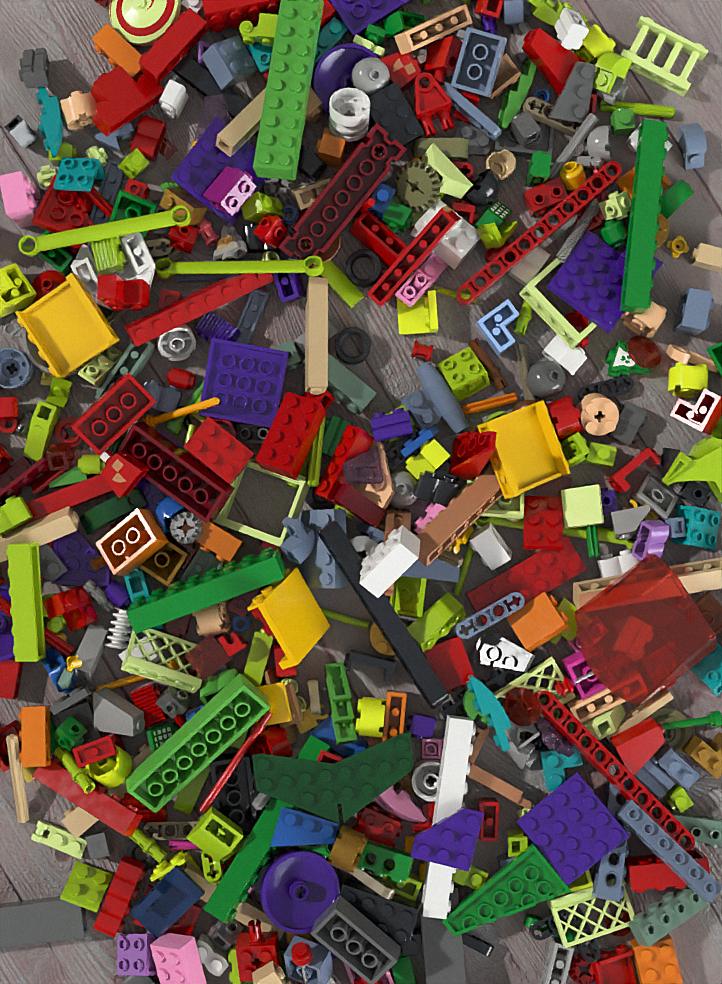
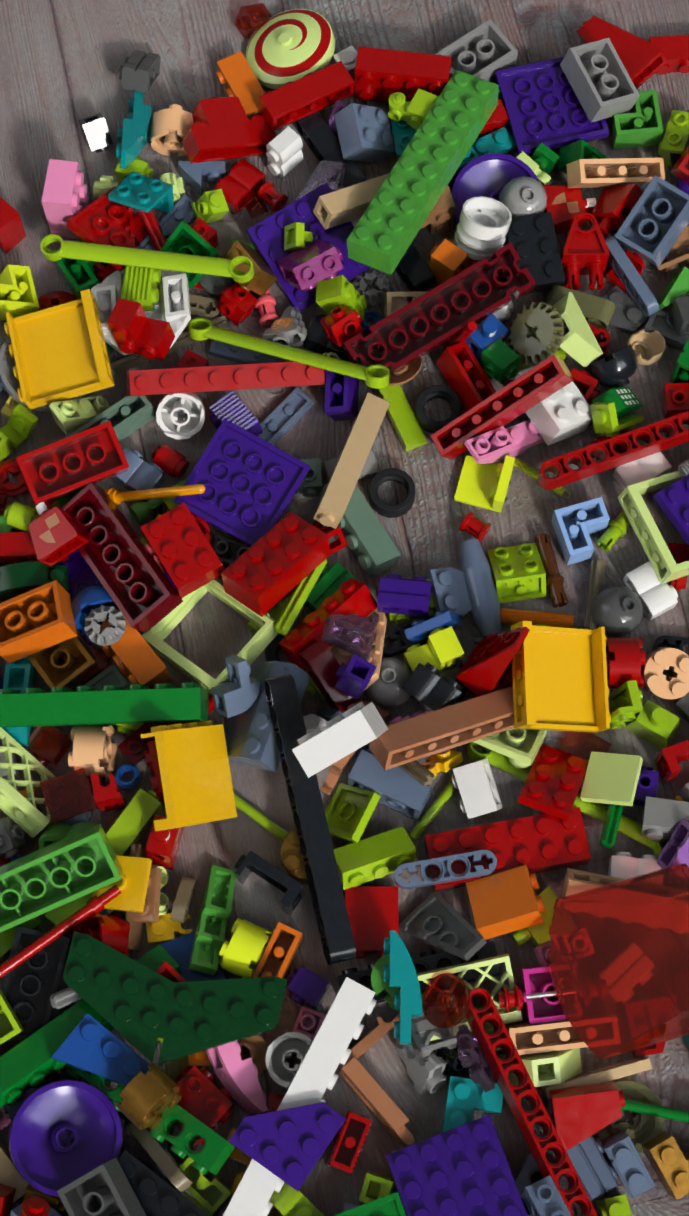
camera: 20 degrees right, 15 degrees down
(177, 138) = (272, 196): none -> red bush
(210, 171) = (296, 236): none -> lime tile
(379, 503) = (354, 676): none -> dark purple brick

